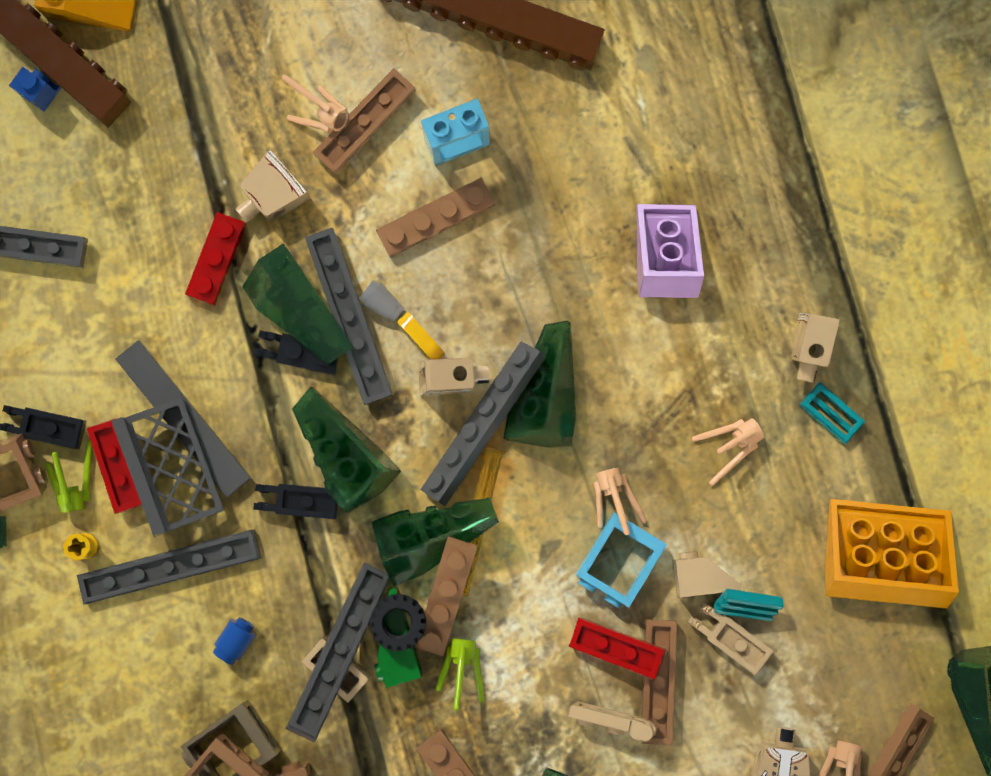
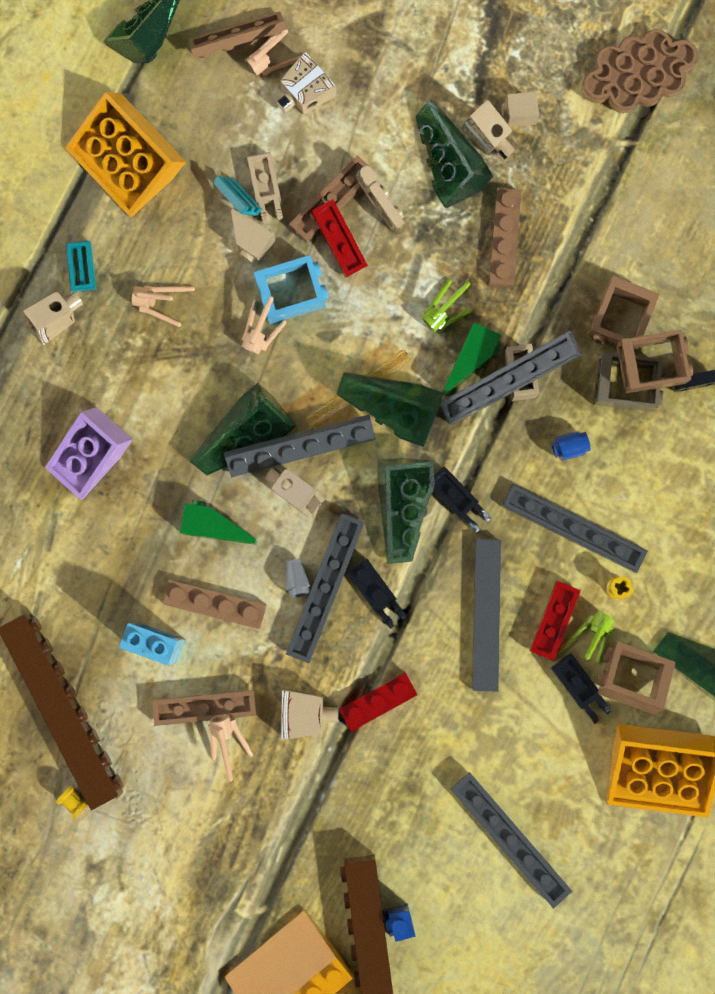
camera: 140 degrees left, 0 degrees up
(142, 477) = (544, 593): dark grey fence -> none
(289, 300) = (353, 632): clear green wedge -> none
(379, 629) = (471, 355): black tyre -> none
(420, 337) = (291, 534): yellow beam -> none
(446, 595) = (415, 357): medium nougat plate -> none
(501, 282) = (207, 523): none -> green slope

